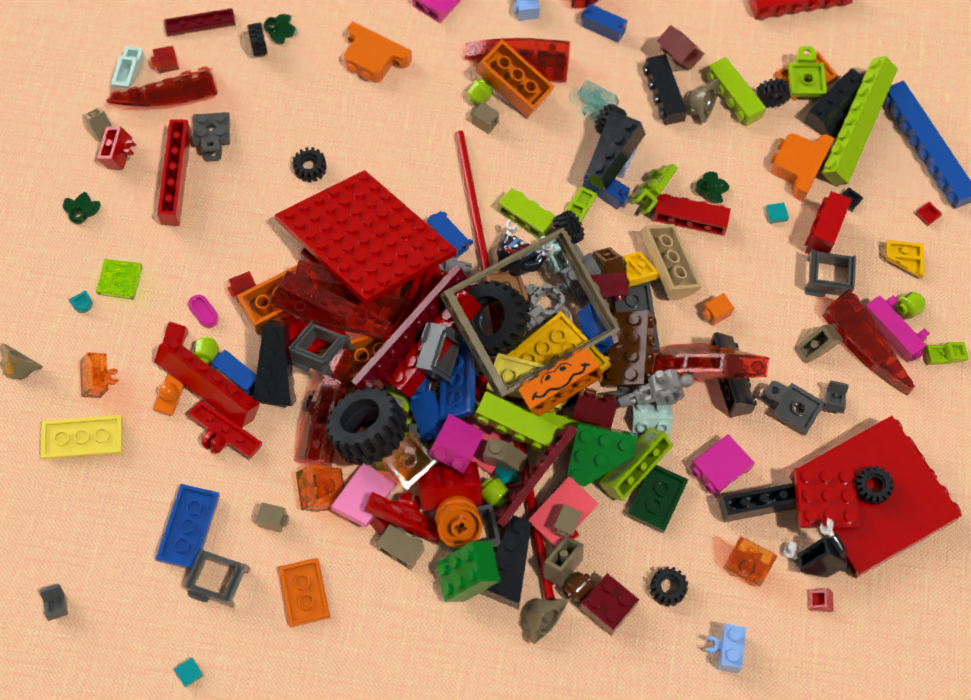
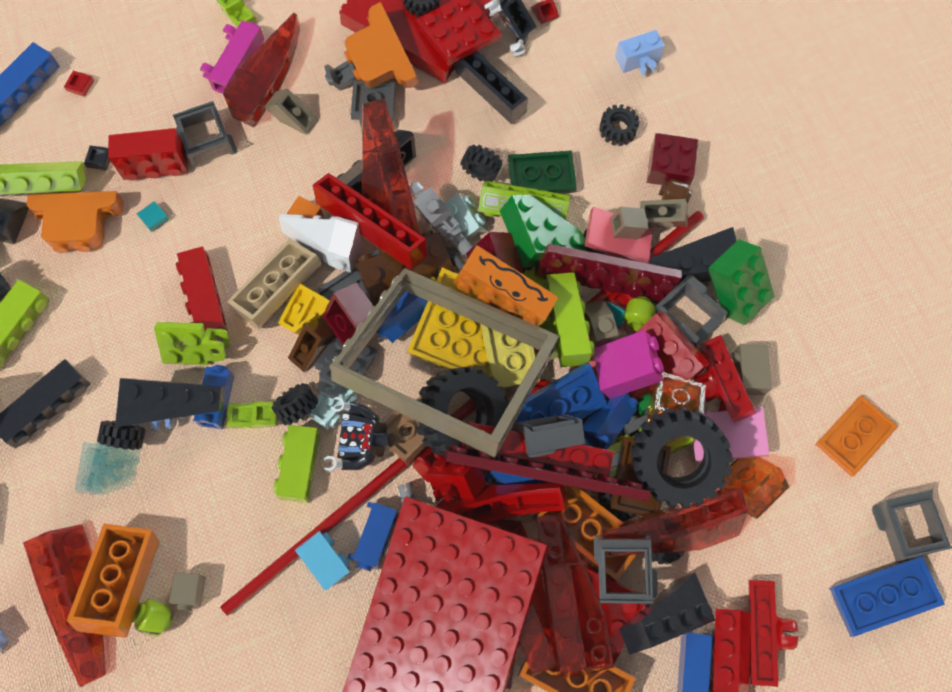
camera: 120 degrees left, 5 degrees up
(272, 517) = (815, 513): dark tan brick -> none
(452, 195) = (323, 560): none -> medium azure brick
(458, 521) = (701, 319): orange wheel -> none
(536, 311) = (402, 364): light grey piece -> none
(542, 617) = (722, 210): dark tan hat -> none
(676, 308) = (332, 239): none -> white wedge
(676, 332) = (374, 223): none -> red brick
(689, 451) = (481, 163): none -> black tyre
(703, 99) = (36, 357): dark tan hat -> none
(712, 186) = (152, 292): dark green plate -> none
(721, 465) = (471, 128): dark pink panel -> none
(749, 562) = (555, 69): clear orange slope -> none
(833, 425) = (379, 53): none -> orange brick
(906, 256) = (144, 80): yellow wing -> none
(911, 305) = (200, 52): lime head -> none

